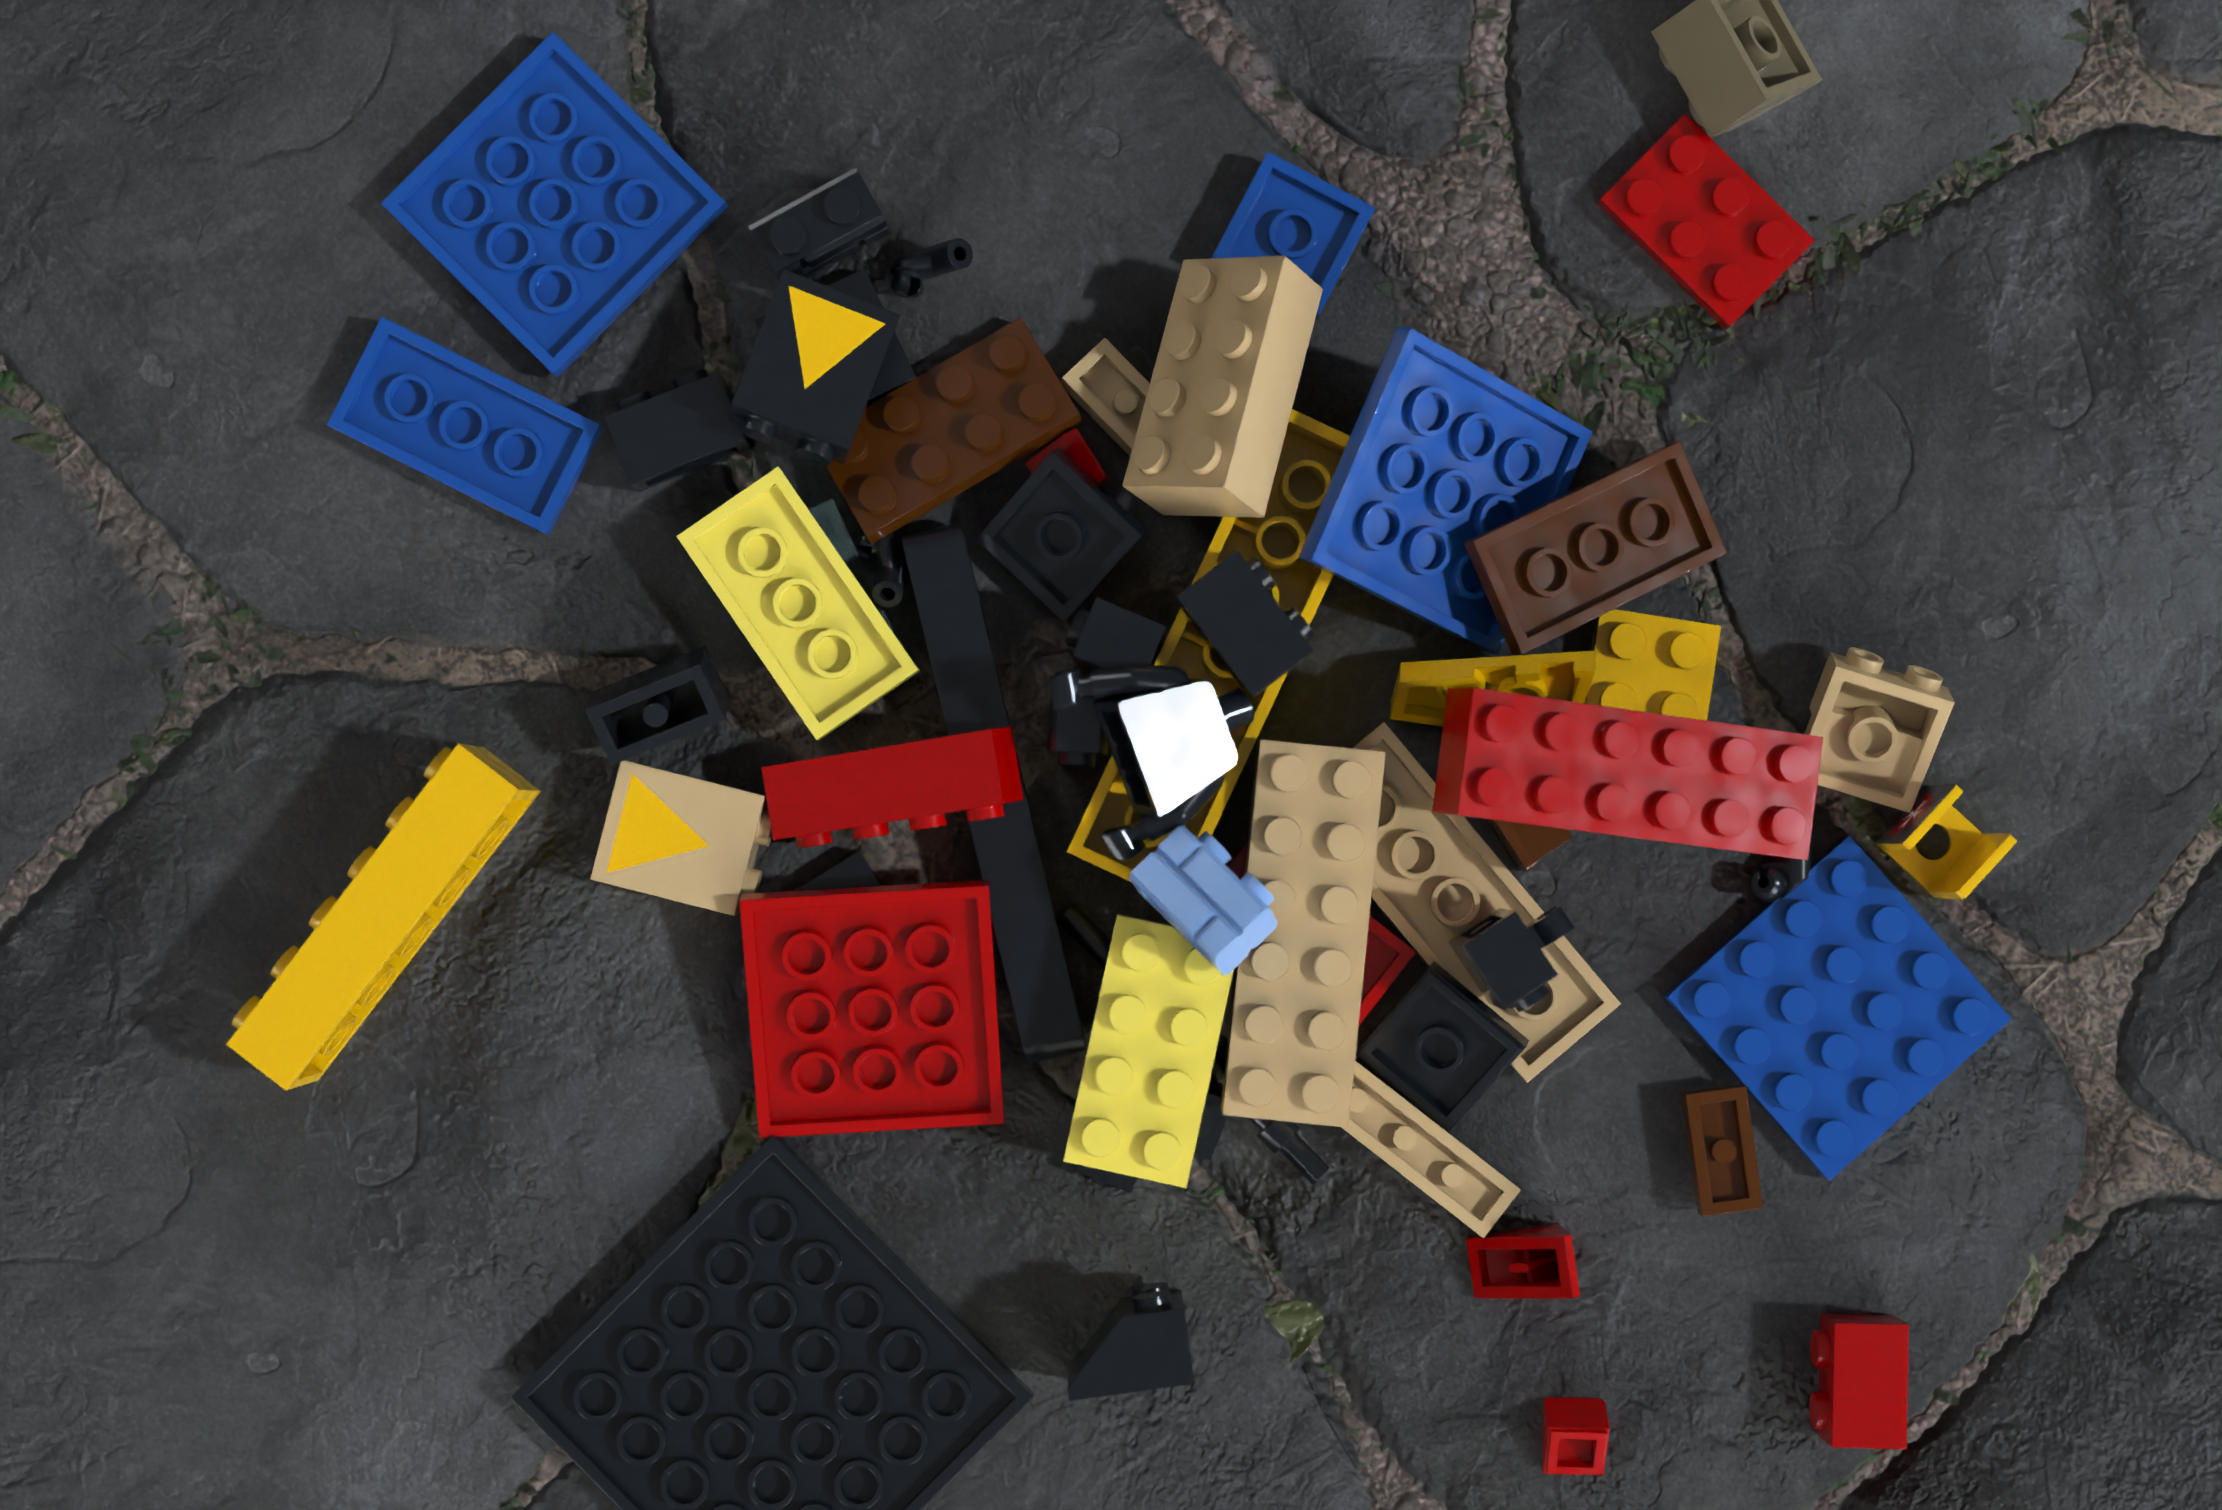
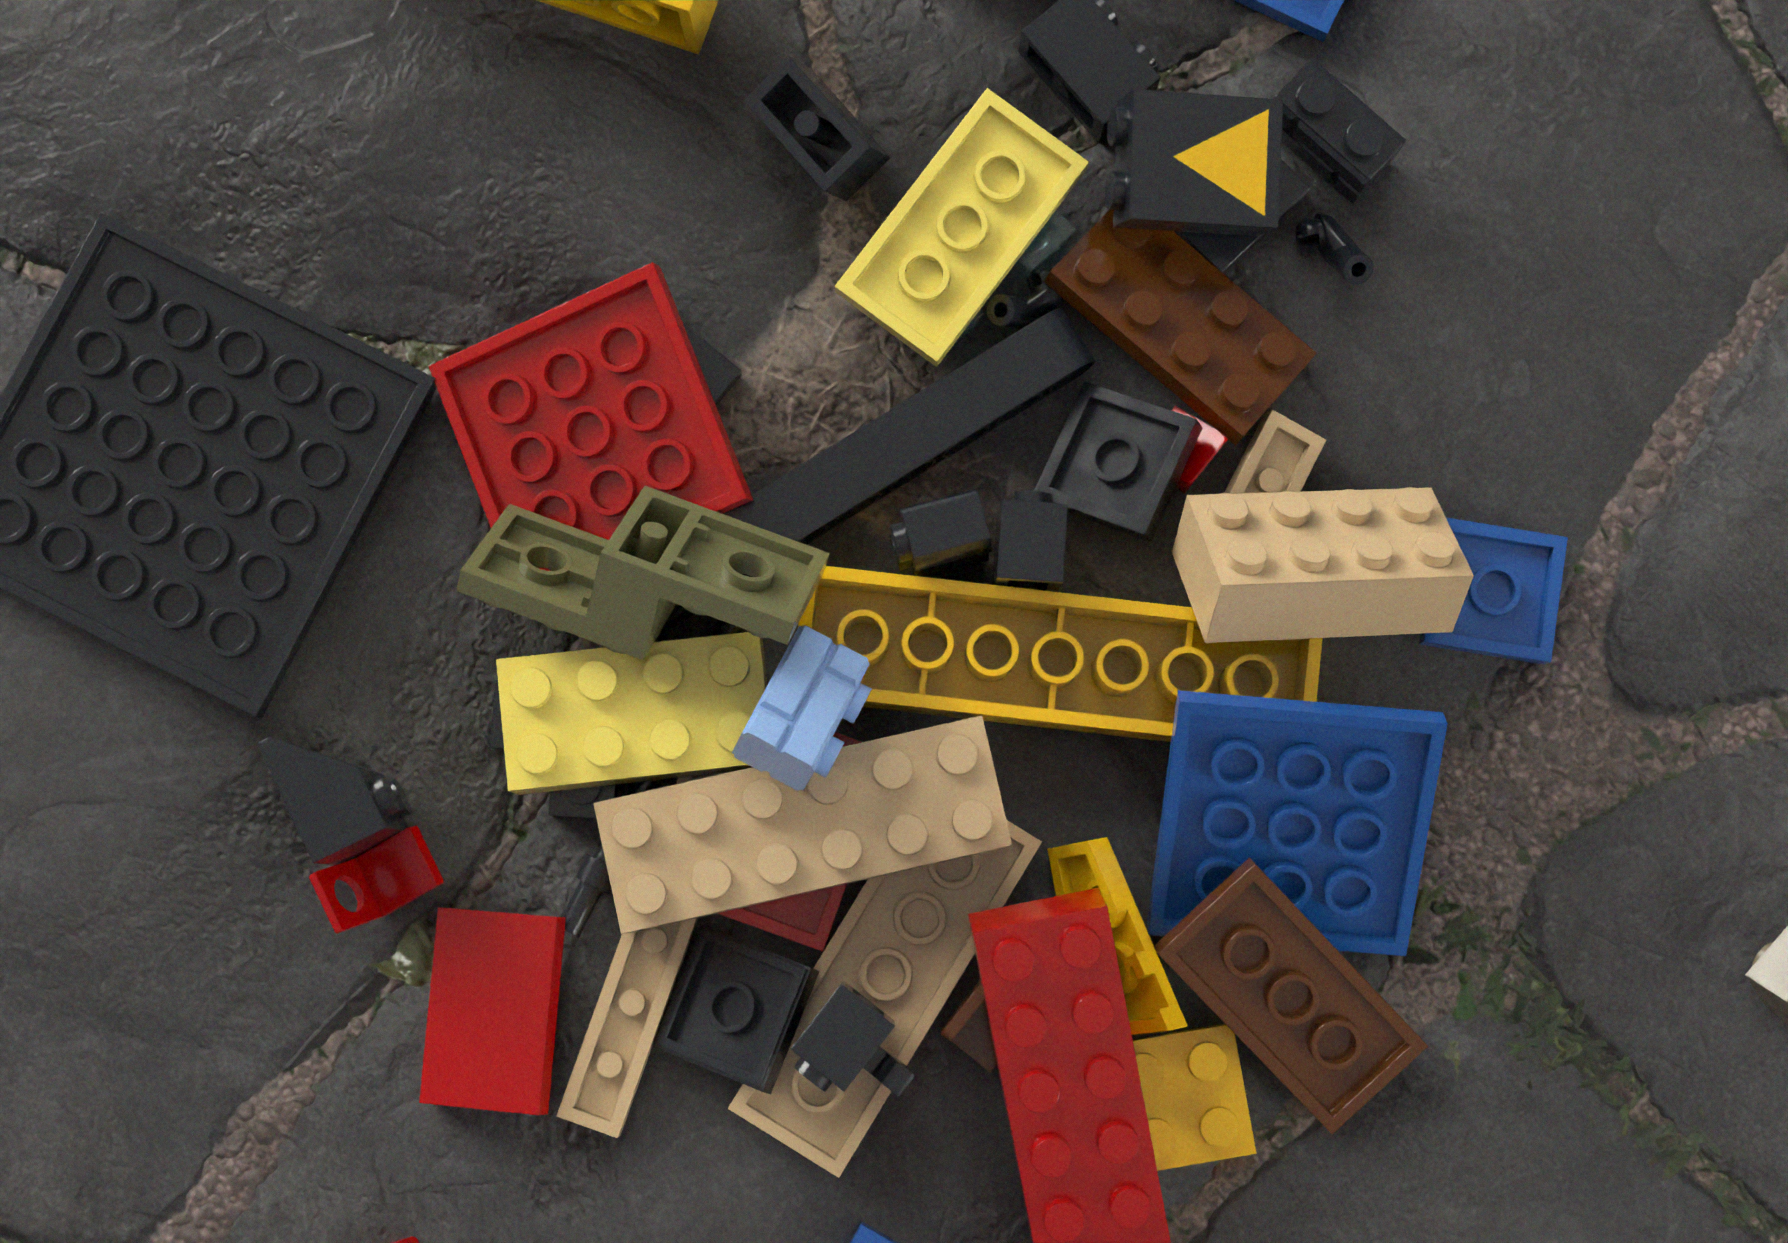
camera: 75 degrees right, 5 degrees down
(682, 838) = (697, 196): tan brick -> none
(893, 784) = (817, 376): red brick -> none
(1026, 981) = (630, 584): none -> olive bracket
(1165, 739) = (950, 616): torso -> none
(1218, 1330) = (380, 878): none -> red bracket
(1246, 623) = (1092, 660): black brick -> none
(1370, 1265) = (492, 1011): none -> red tile
(1524, 1264) = (543, 1167): red slope -> none
(1705, 221) = (1657, 1001): red plate -> none

